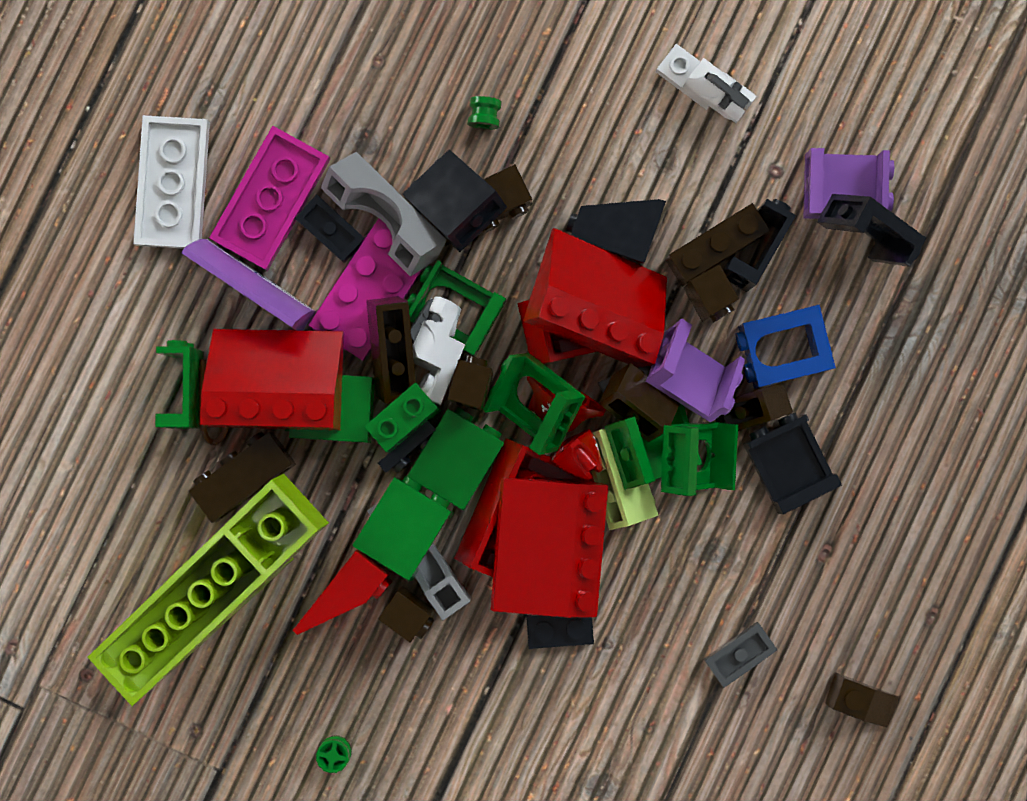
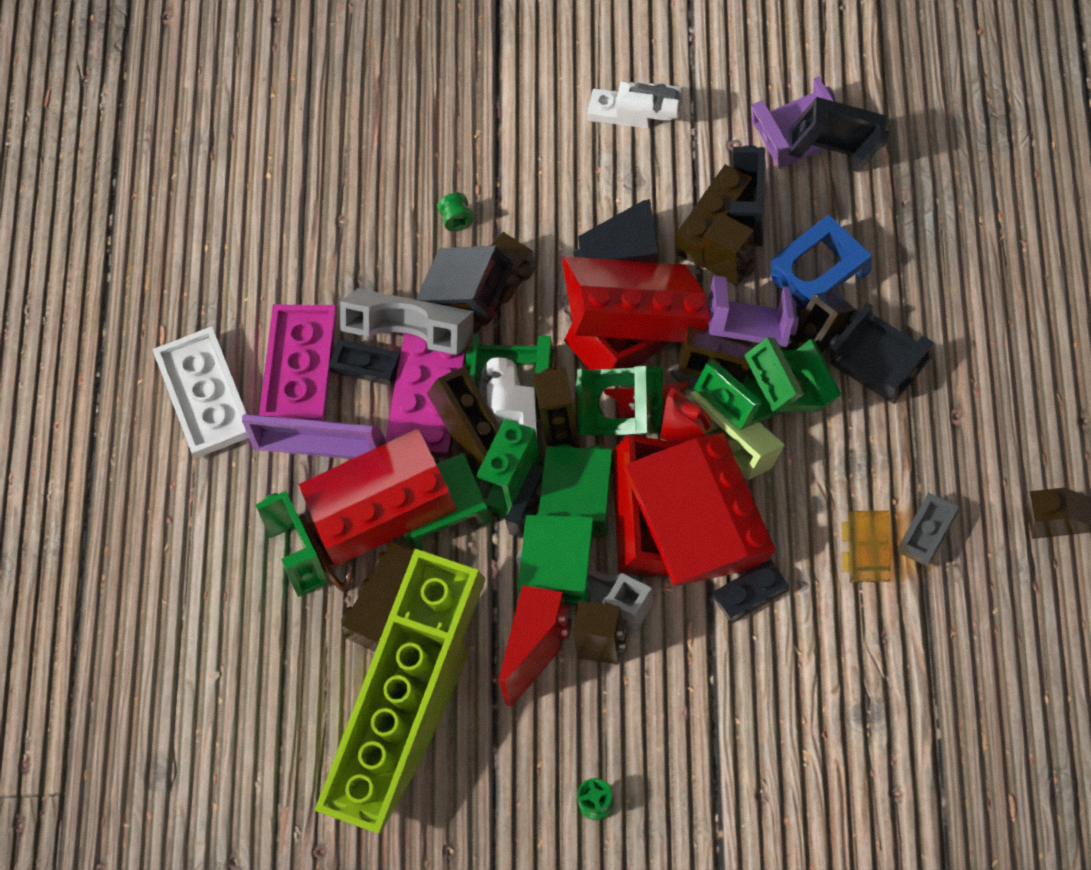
camera: 20 degrees left, 25 degrees down
(680, 645) = (868, 546): none -> clear yellow brick

